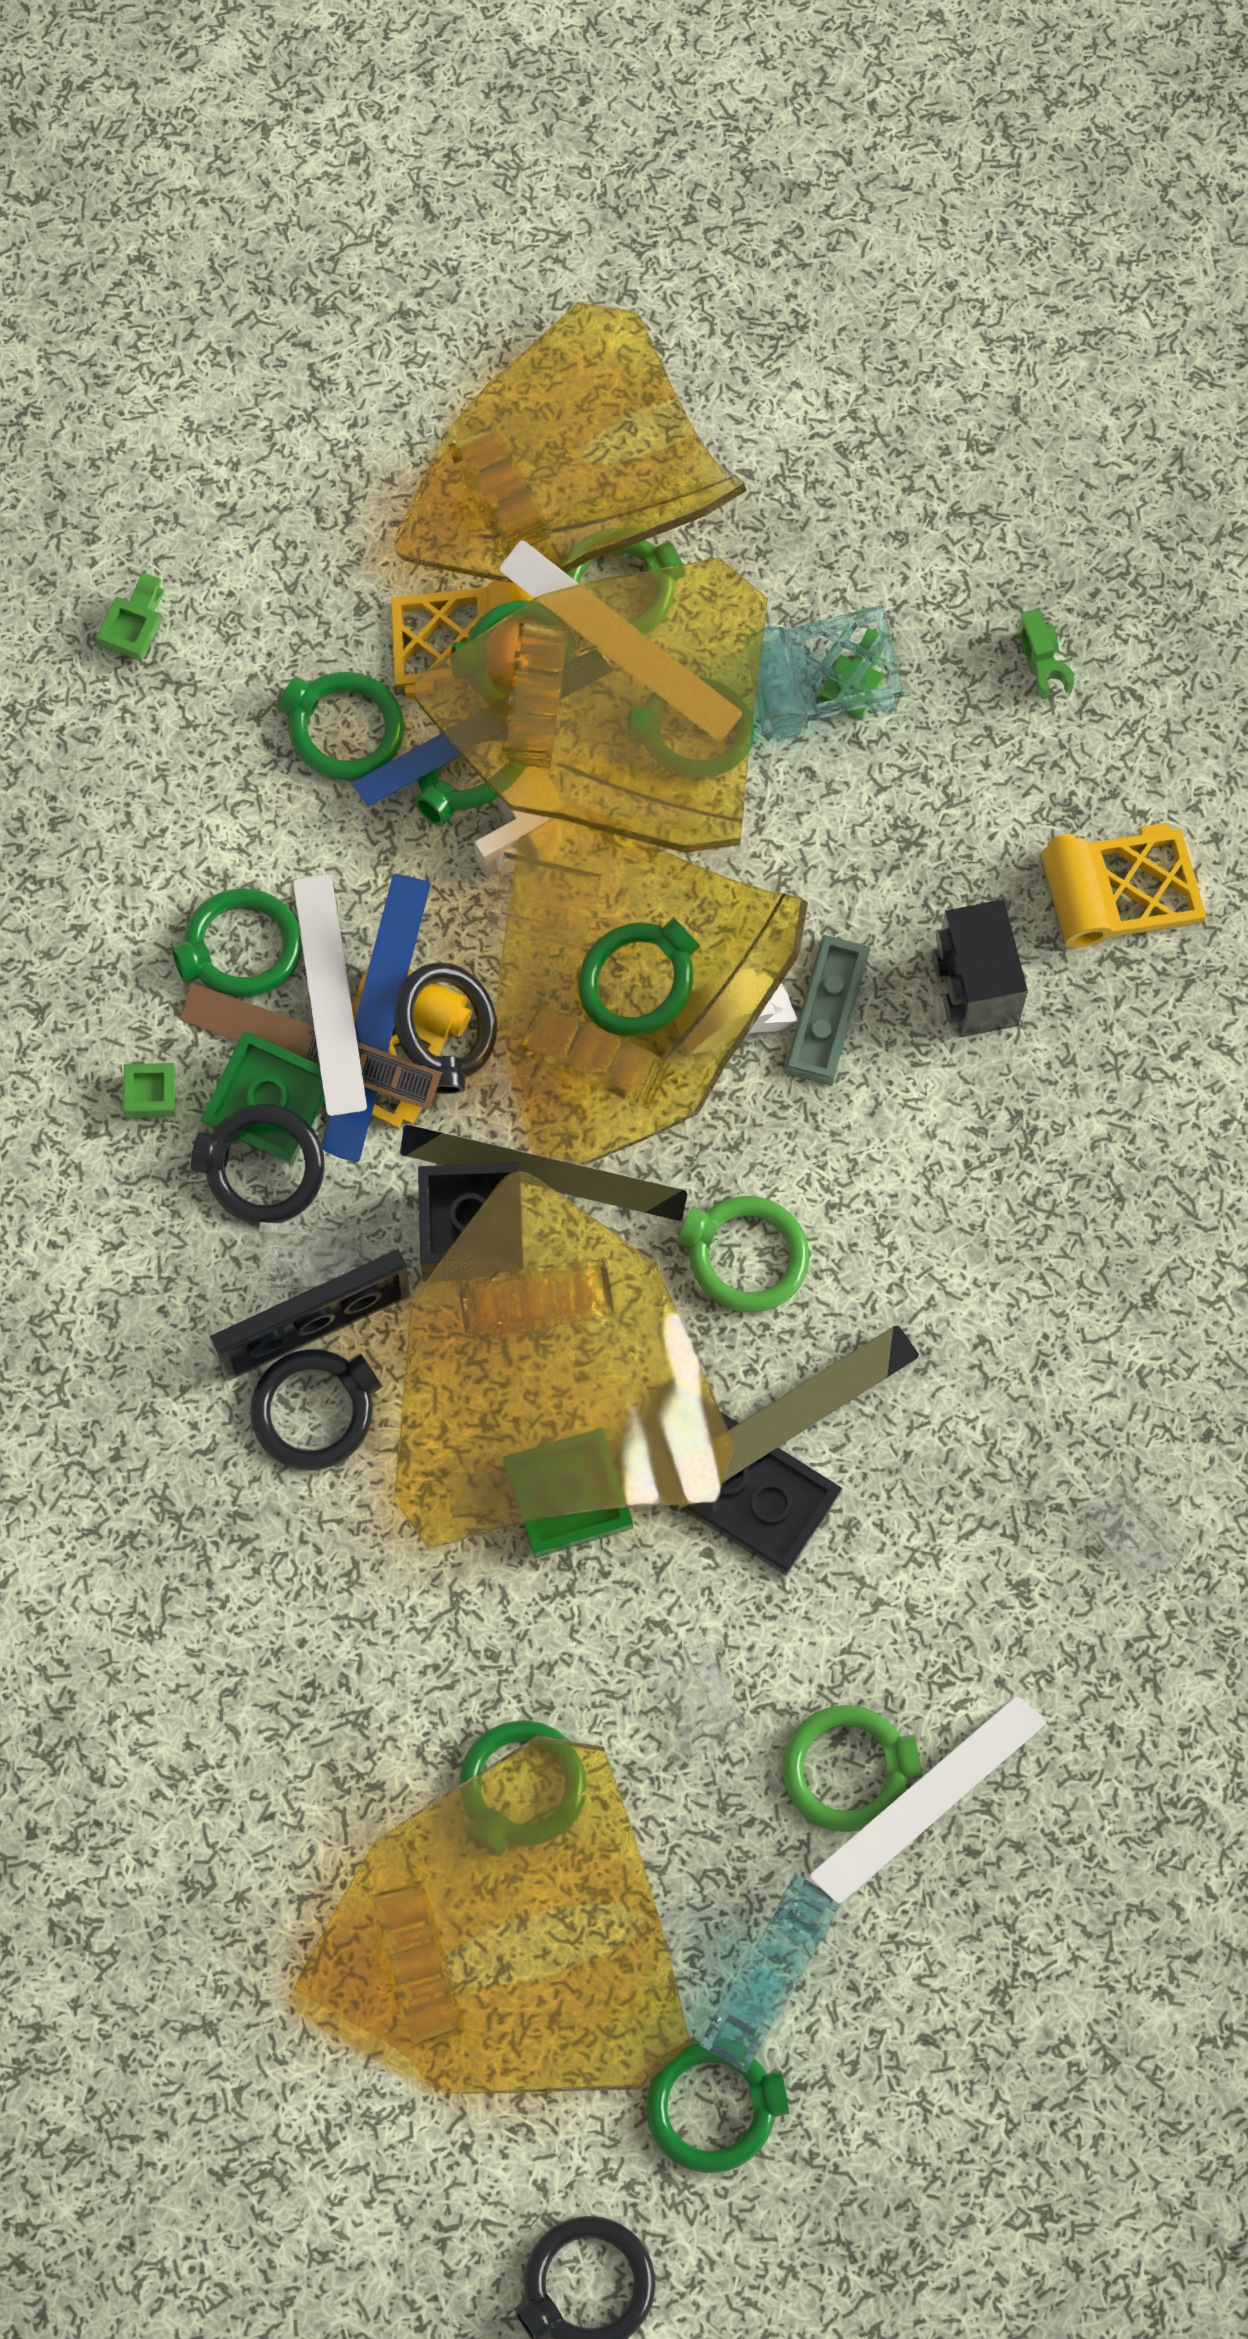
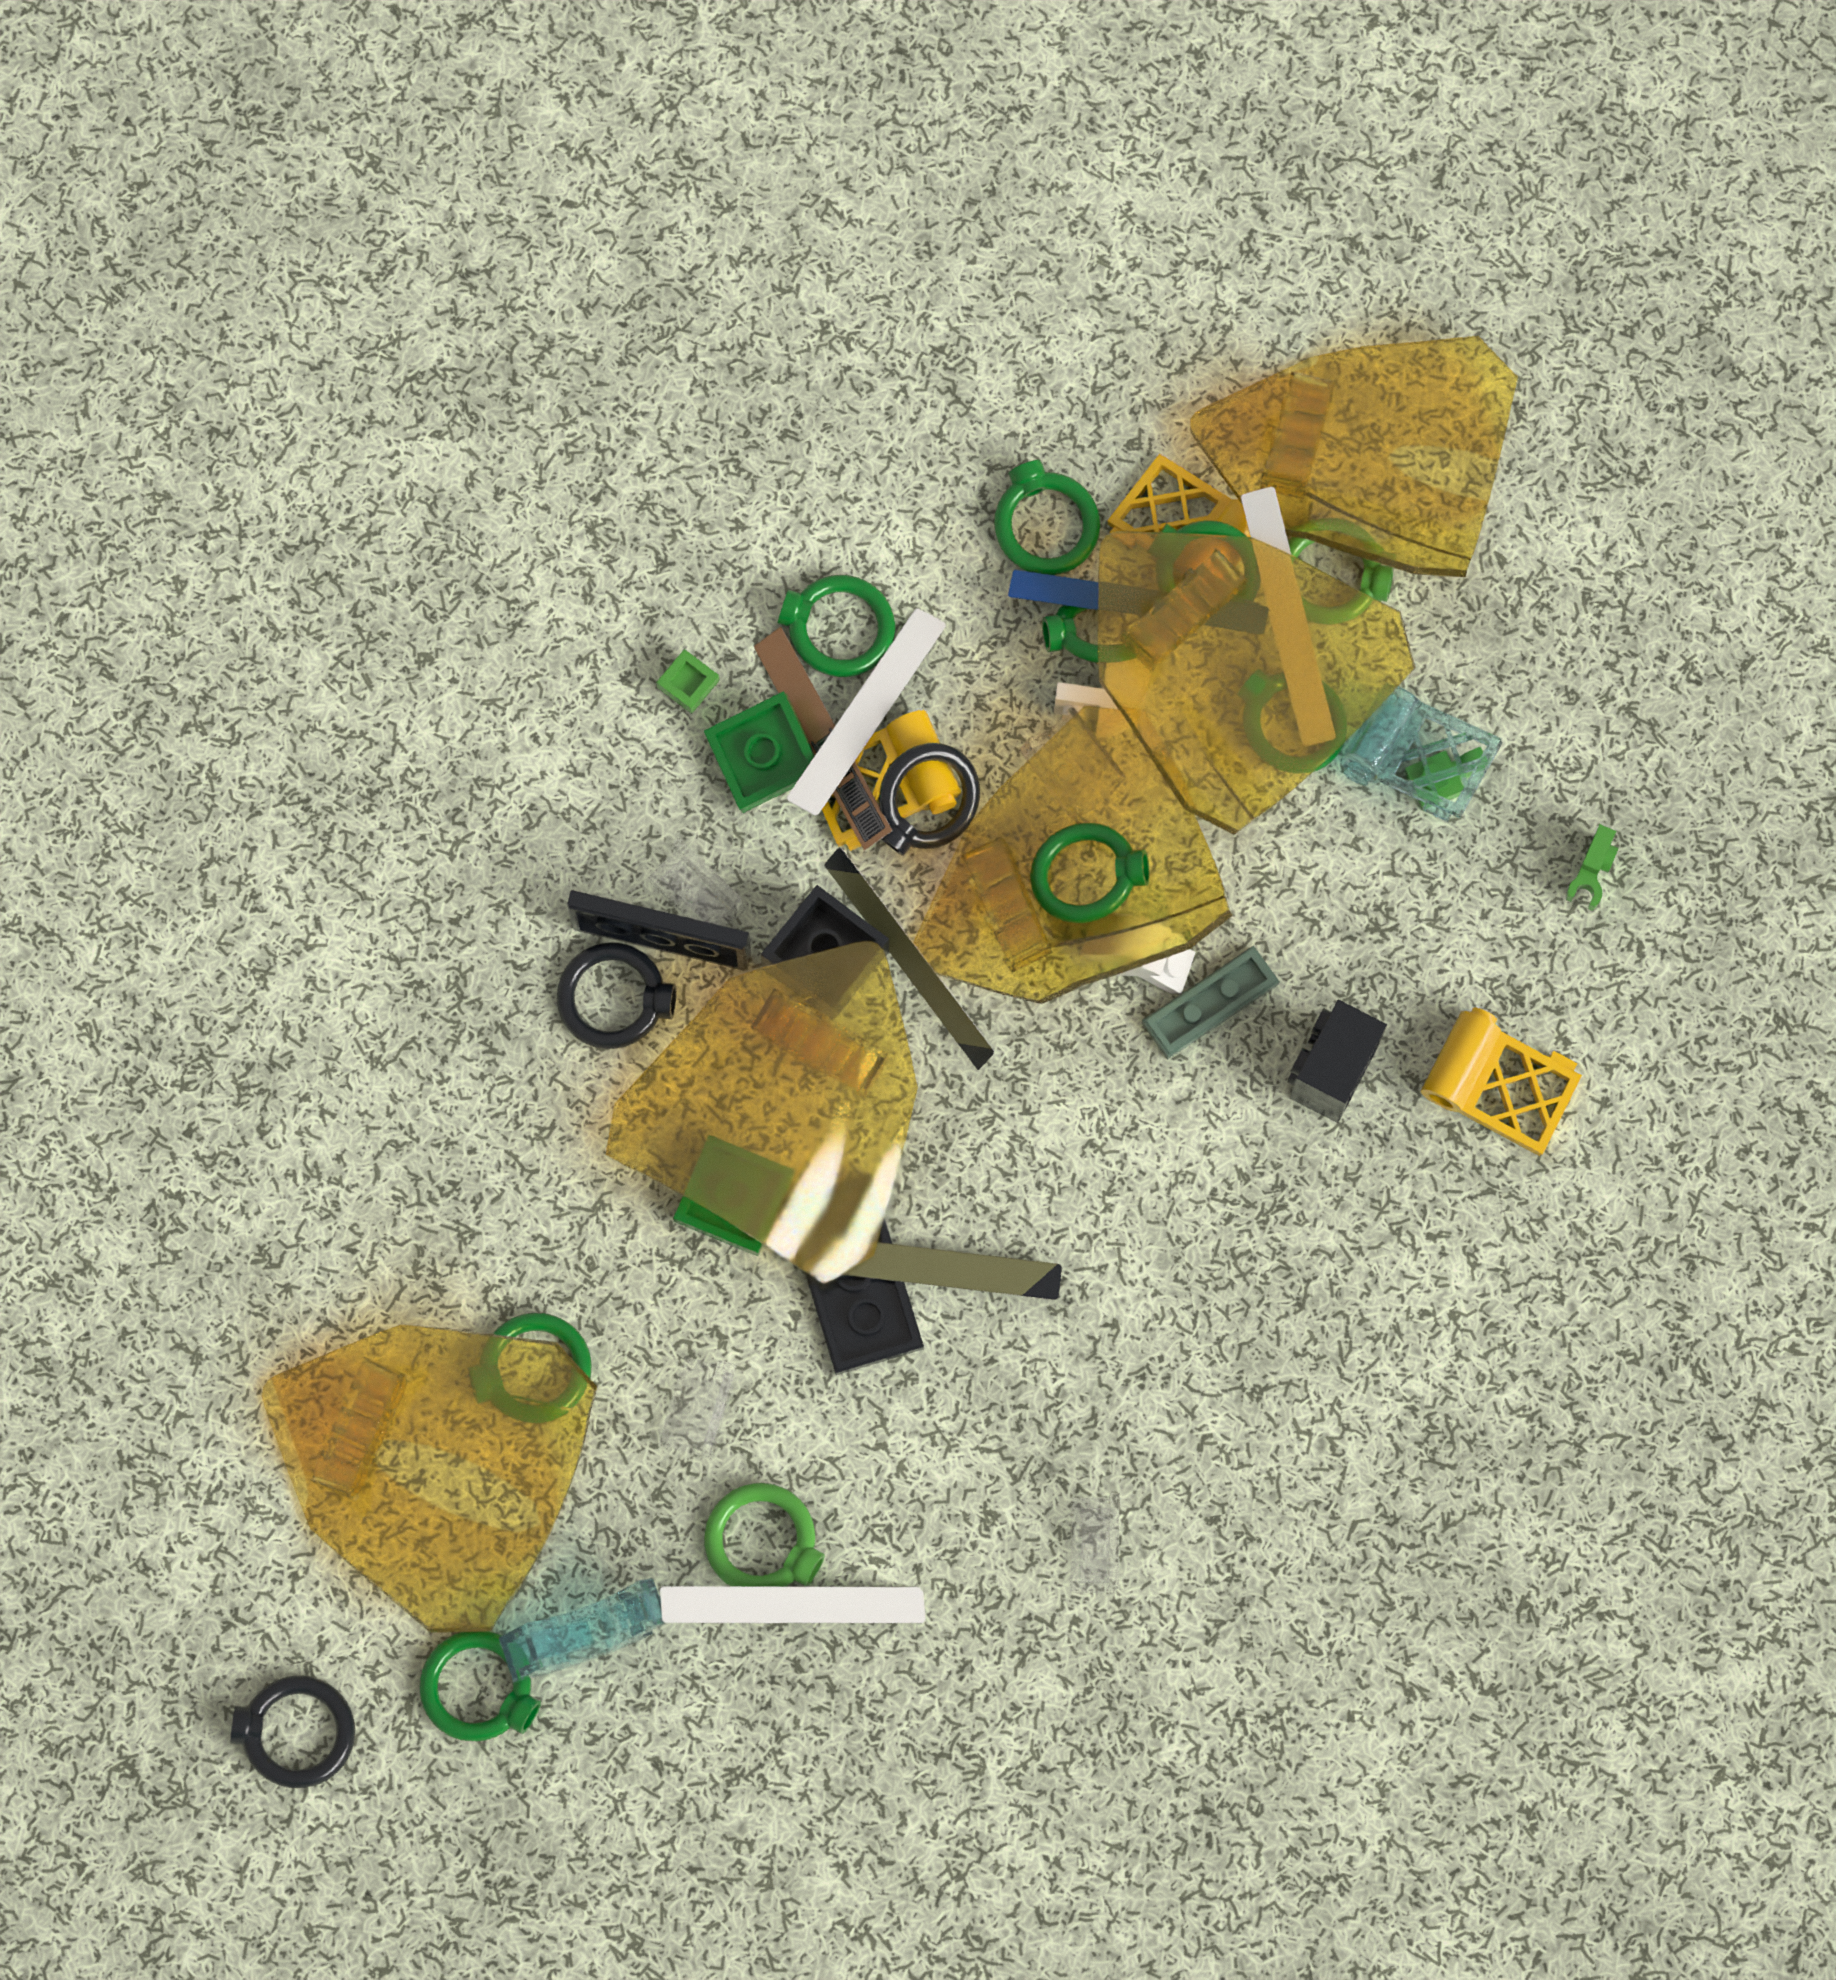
camera: 40 degrees right, 5 degrees up
(133, 623) = (958, 330): bright green plate -> none
(212, 1153) = (690, 762): black piece -> none
(375, 1012) = (912, 730): blue sticker -> none
(701, 1229) = (980, 1088): bright green piece -> none

